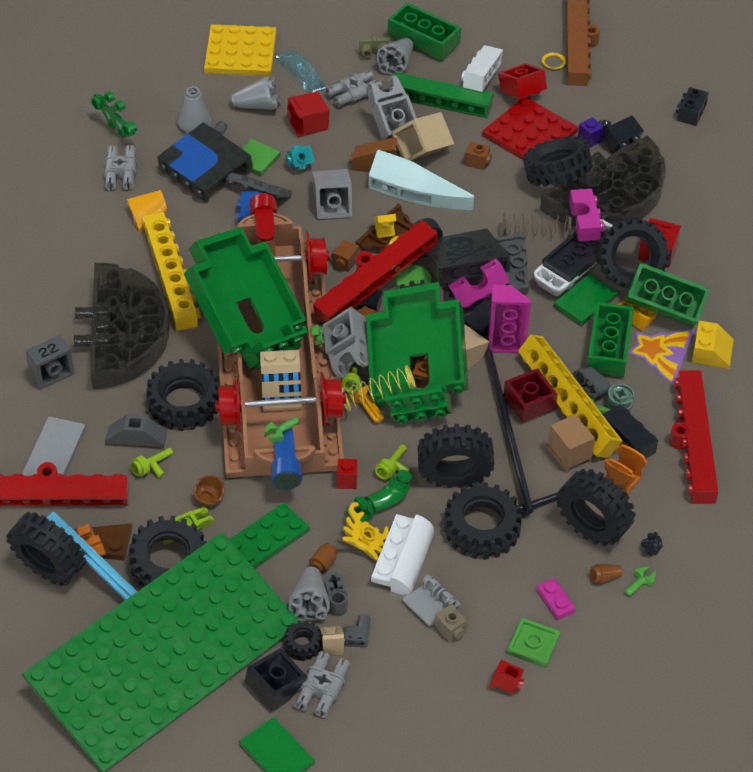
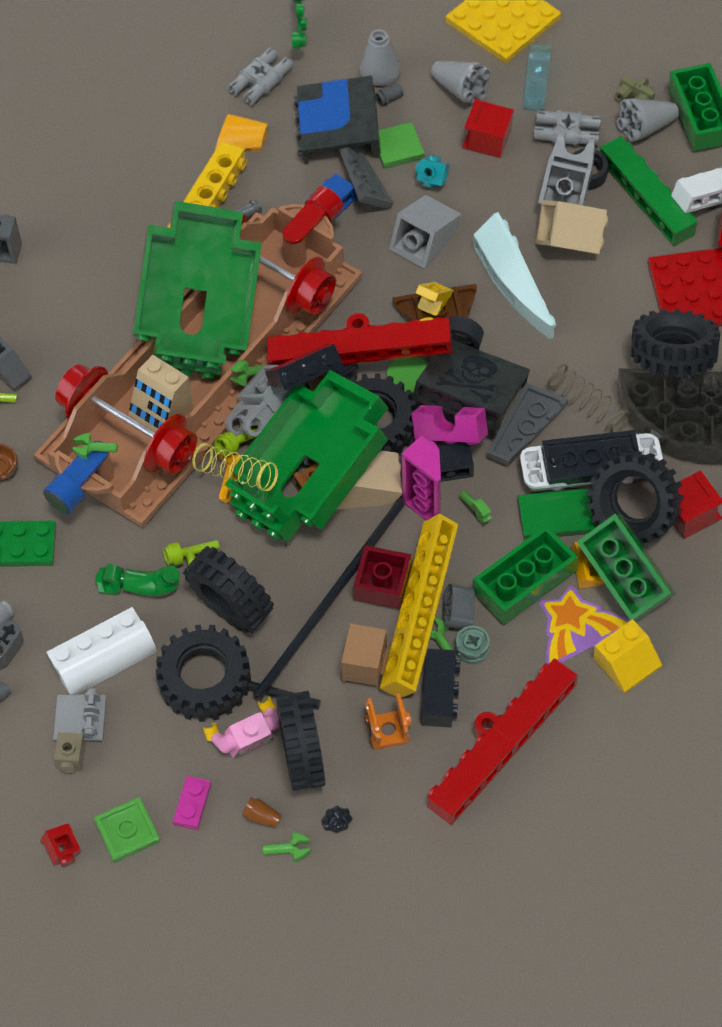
camera: 45 degrees right, 10 degrees up
(127, 325) = (94, 247): clear smoke brick -> none
(182, 376) = (72, 327): black tyre -> none
(323, 557) = (29, 601): dark orange brick -> none
(345, 255) = (370, 304): dark orange brick -> none
(347, 473) = (134, 533): red brick -> none
(364, 535) = (83, 604): yellow animal -> none
(365, 153) = (515, 215): dark orange slope -> none
(365, 301) = (303, 368): none -> black brick
(477, 155) = (612, 282): dark orange brick -> none
(544, 323) = (479, 506): none -> bright green bar
(549, 535) = (248, 732): none -> bright pink torso
(588, 223) = (623, 436): dark pink arch -> none

